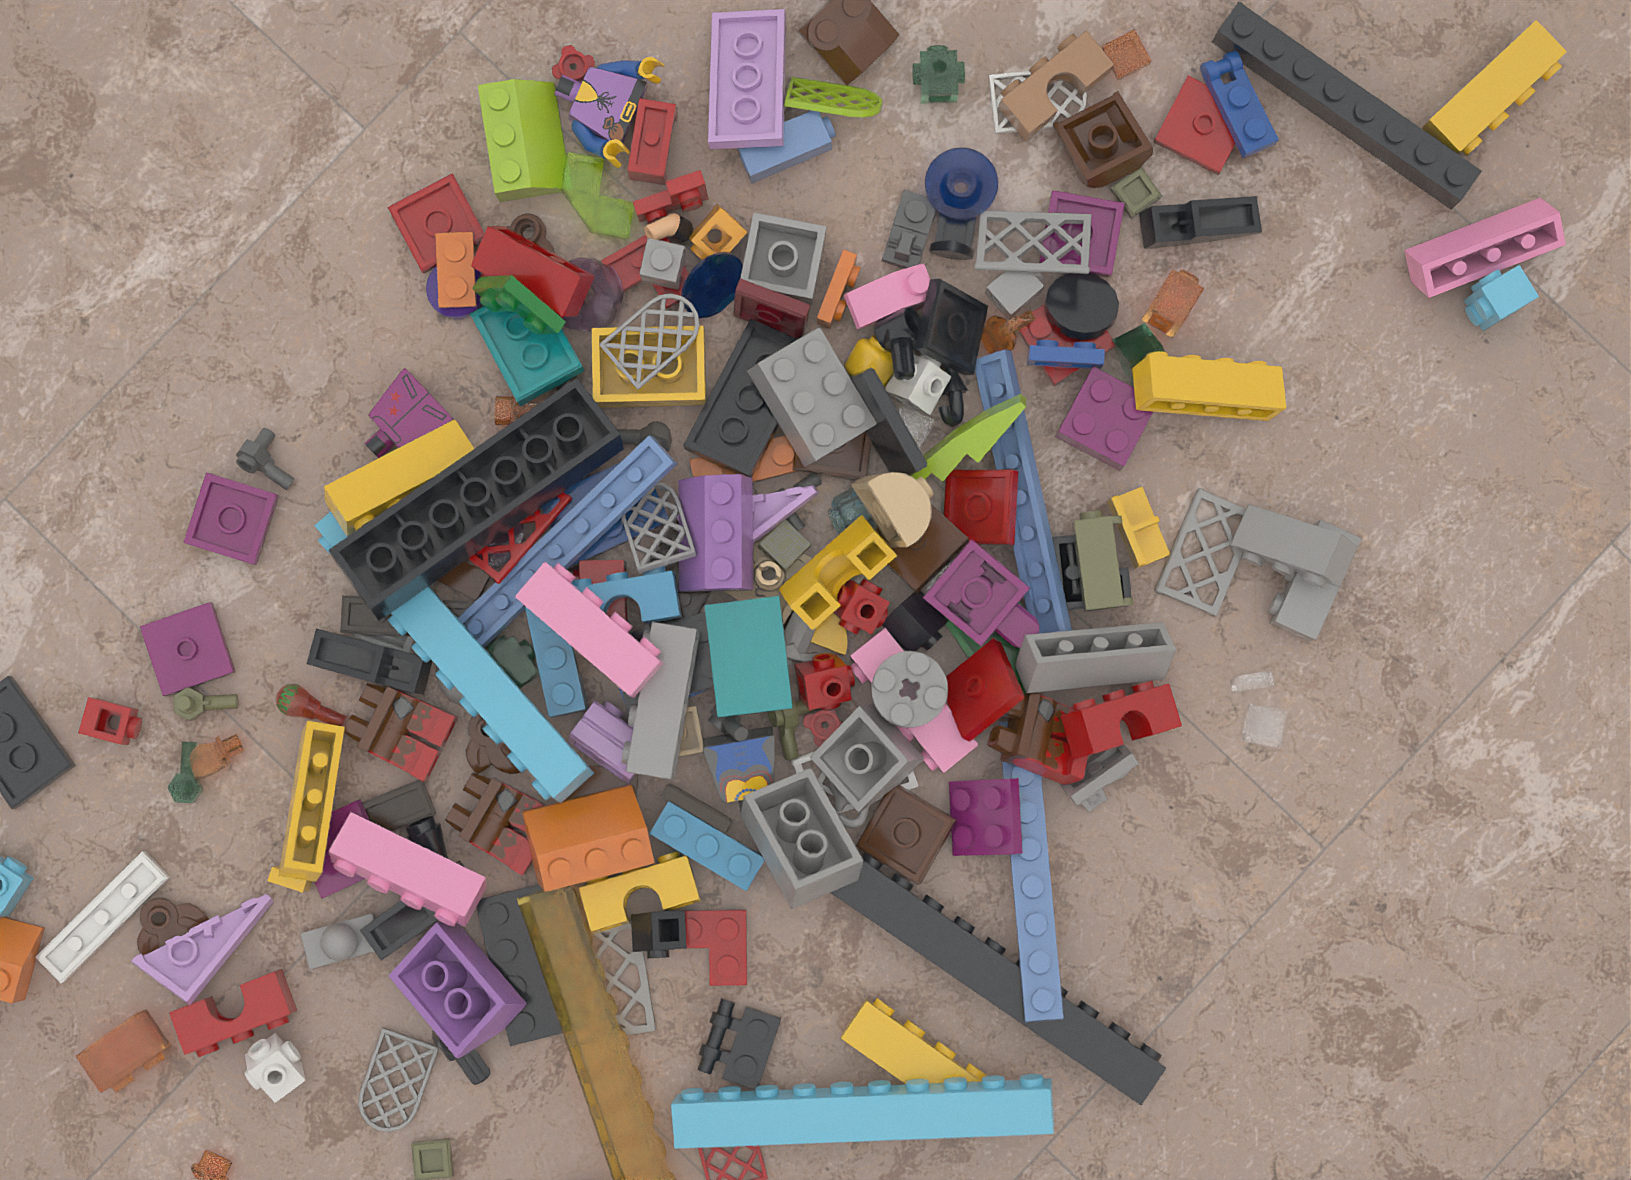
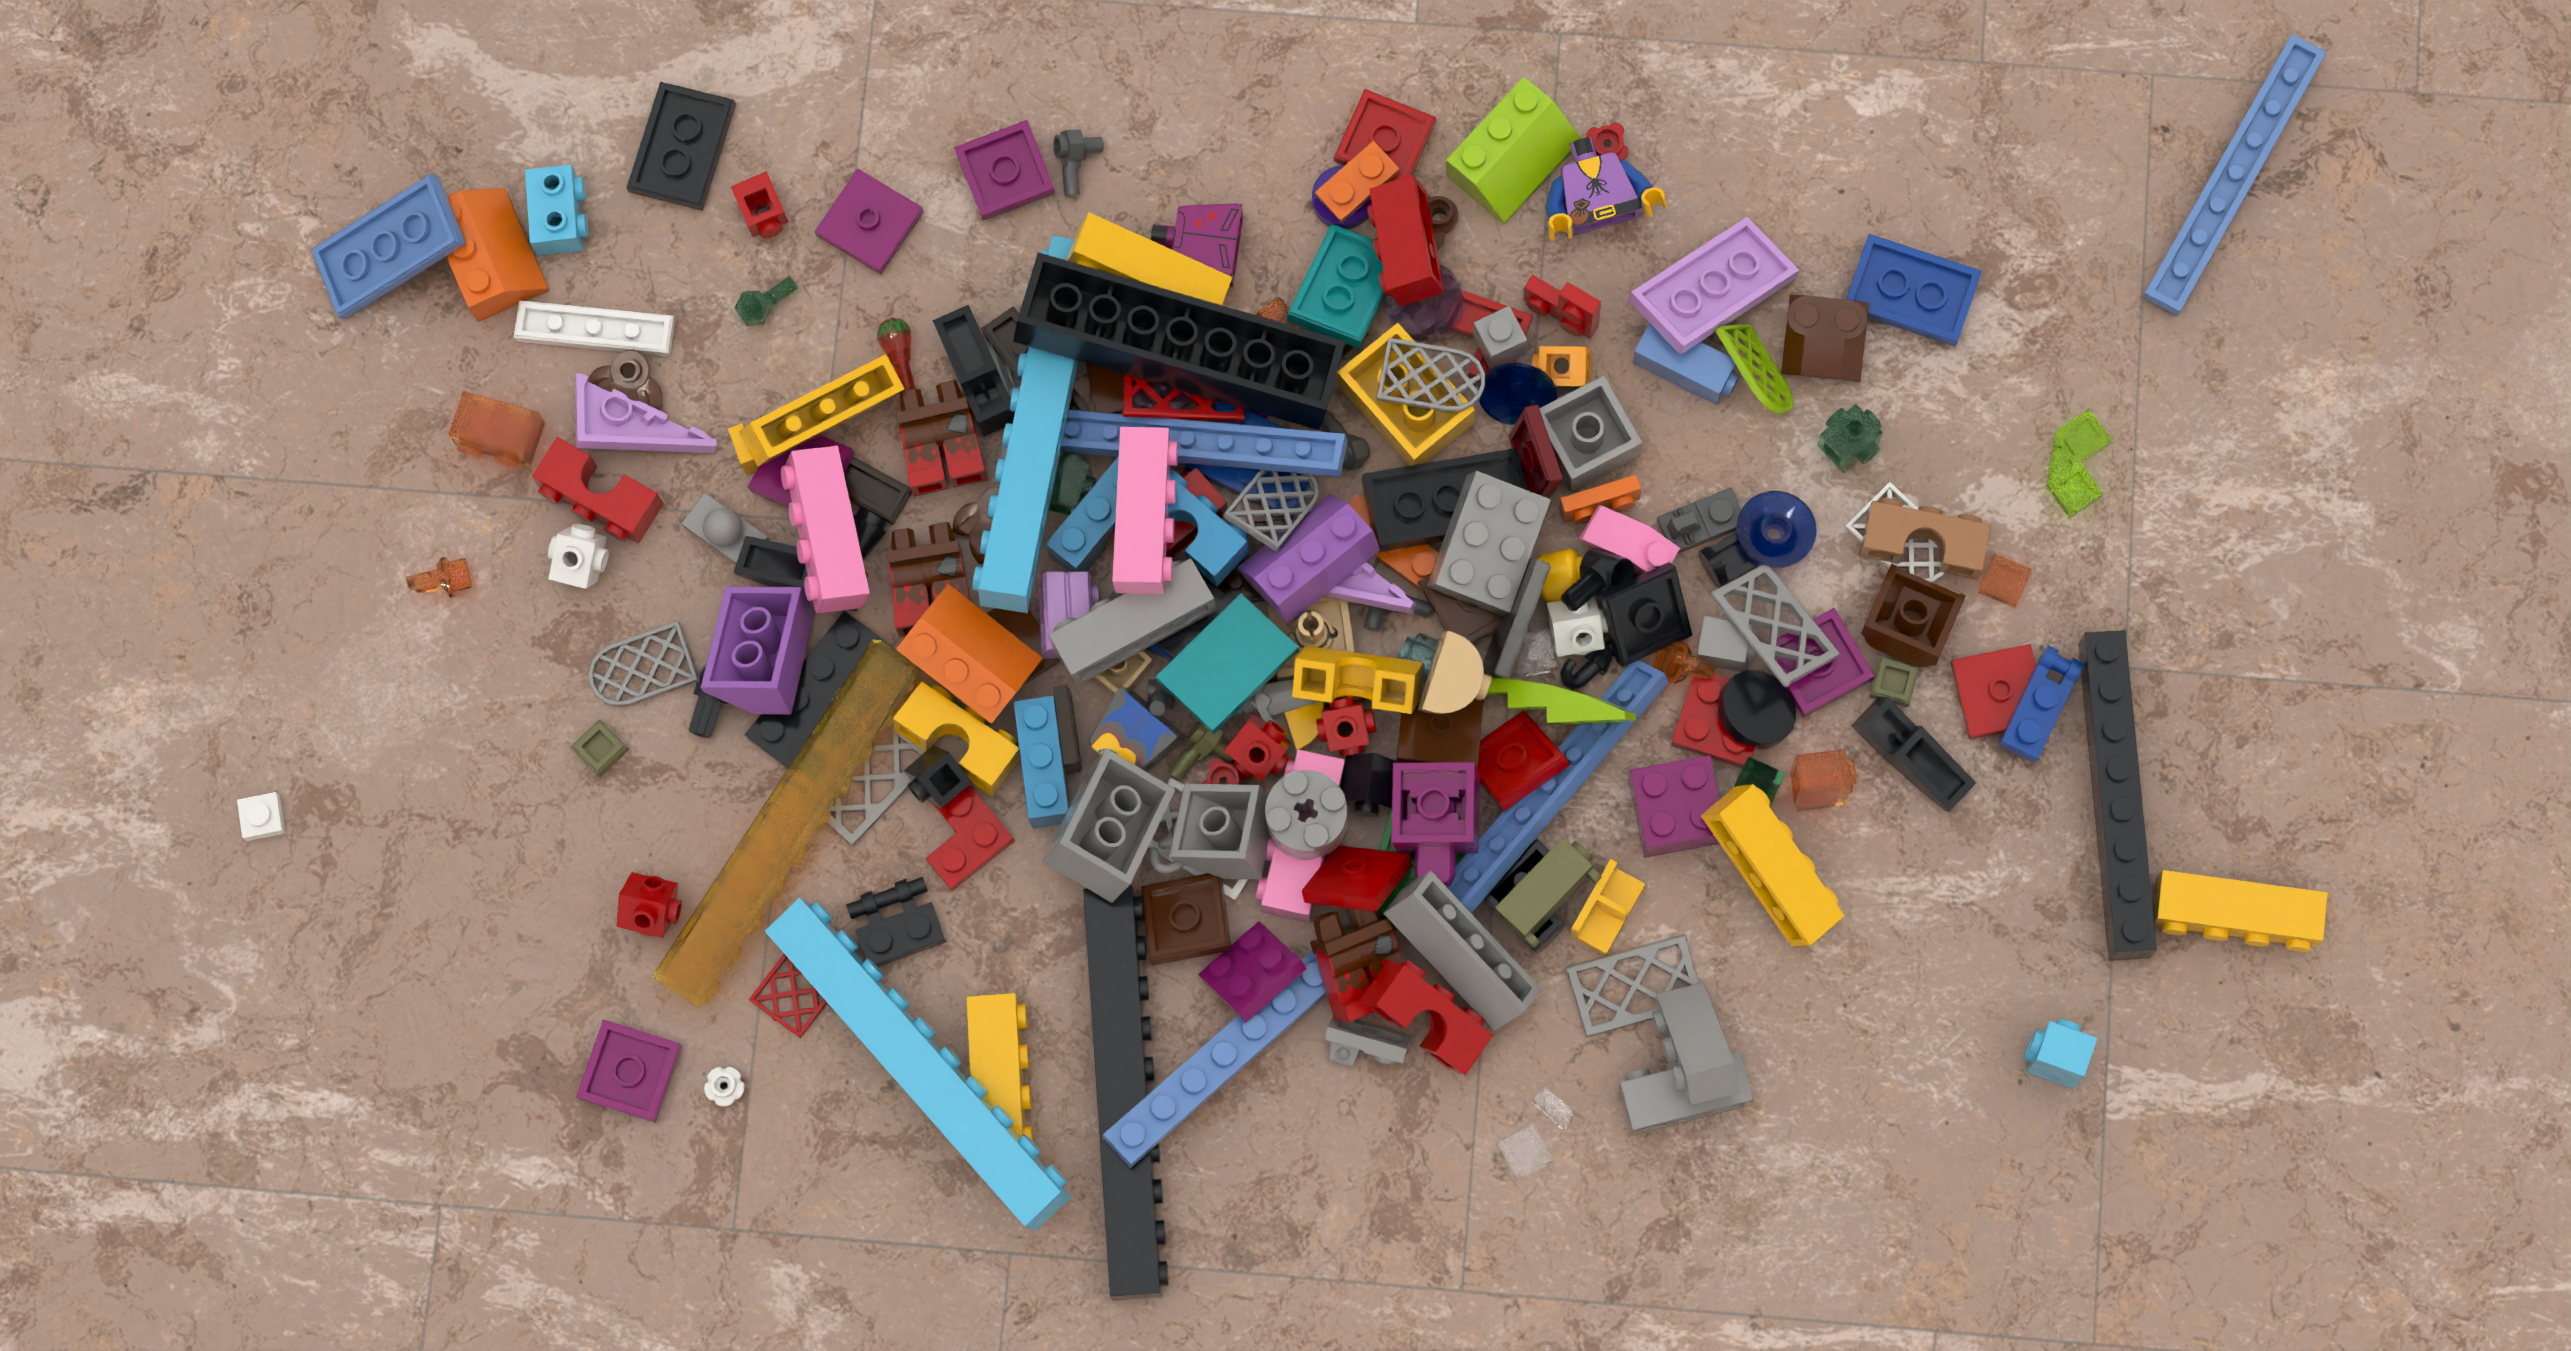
camera: 55 degrees right, 10 degrees down
(192, 703) = (827, 260): olive piece -> none
(214, 756) = (798, 310): clear orange piece -> none
(508, 294) = (1367, 233): green plate -> none
(599, 213) = (1502, 258): clear neon green tile -> none
(651, 141) = (1597, 250): red panel -> none
(670, 225) = (1539, 322): light nougat arm -> none
(784, 545) = (1346, 623): olive tile -> none
(1049, 354) = (1690, 712): plate -> none
(1485, 247) = (2097, 1007): bright pink brick -> none

